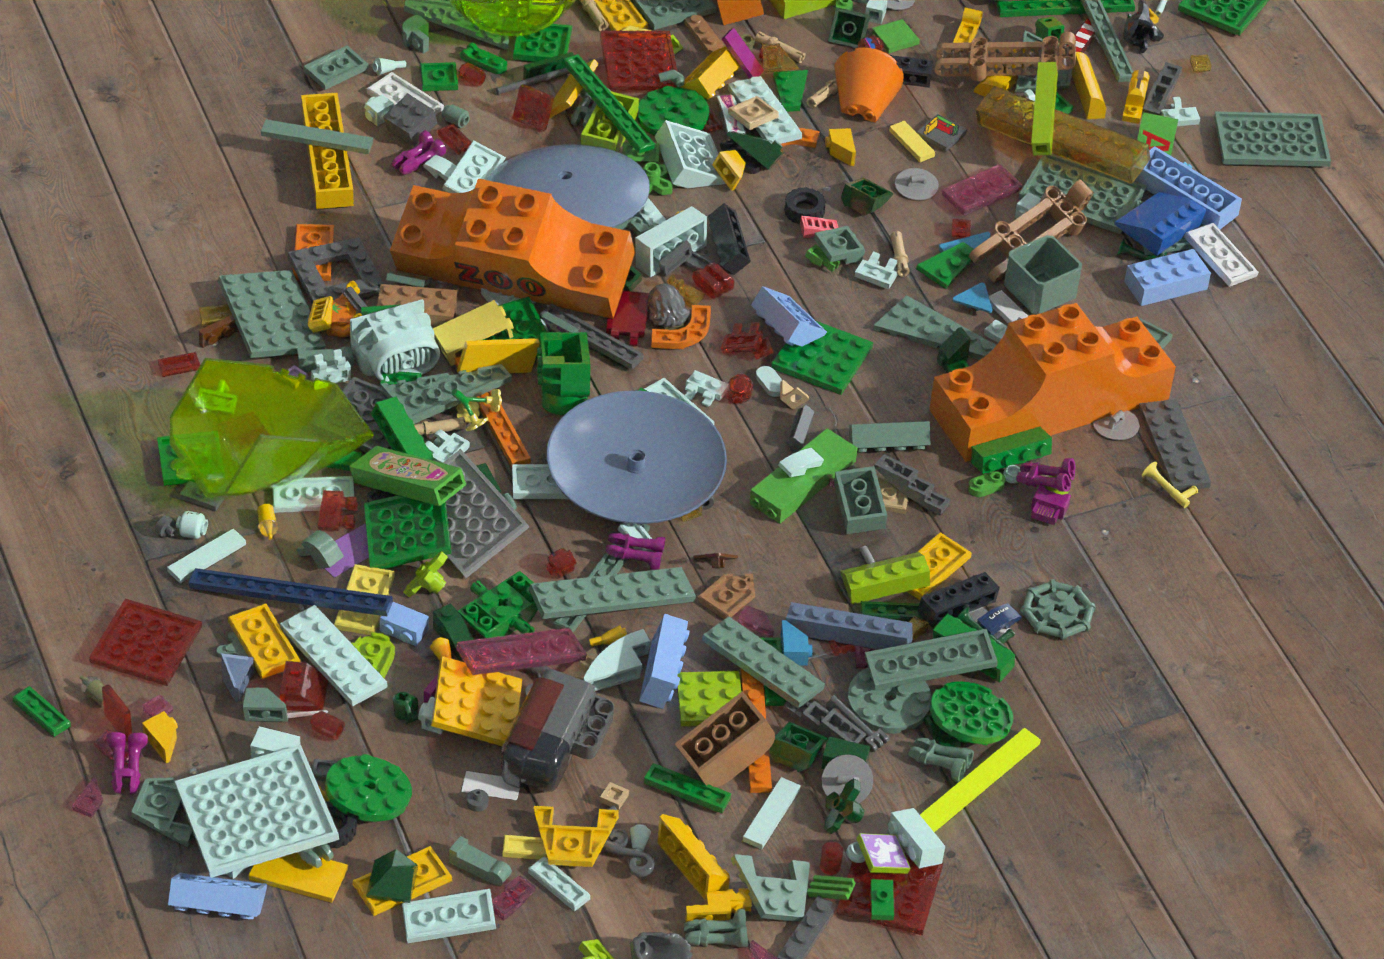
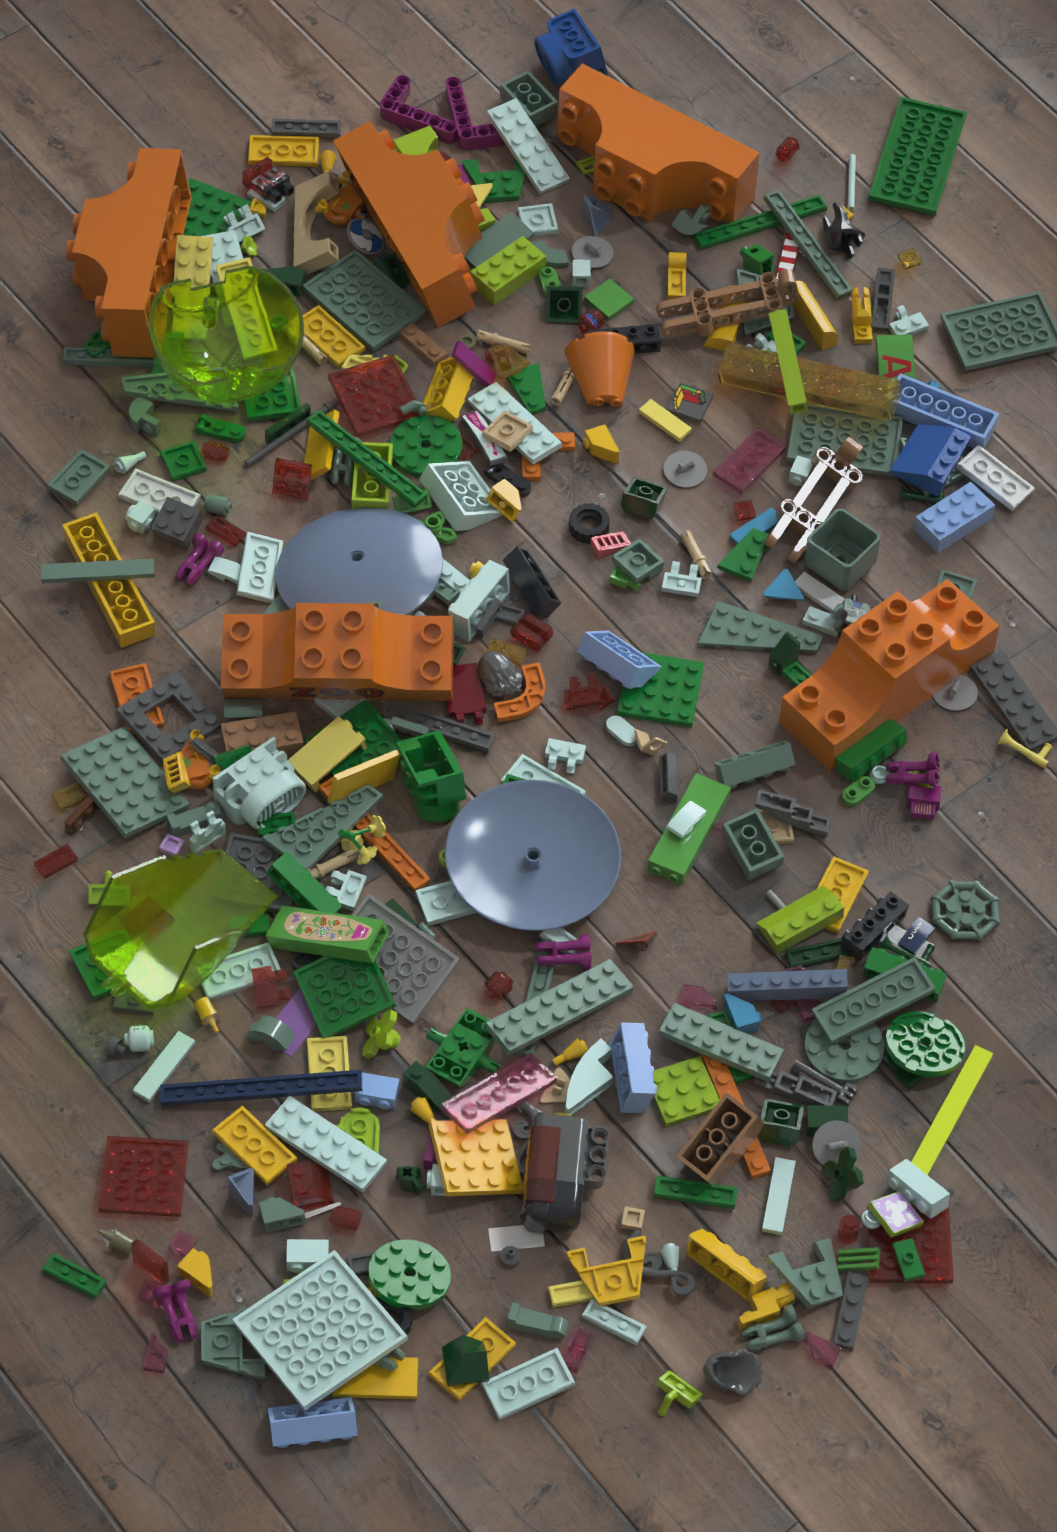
camera: 15 degrees left, 10 degrees up
(728, 594) = (663, 976): medium nougat tile -> none
(739, 389) = (598, 748): clear red head -> none
(762, 149) = (527, 470): dark green slope -> none
(956, 760) = (894, 1096): sand green piece -> none

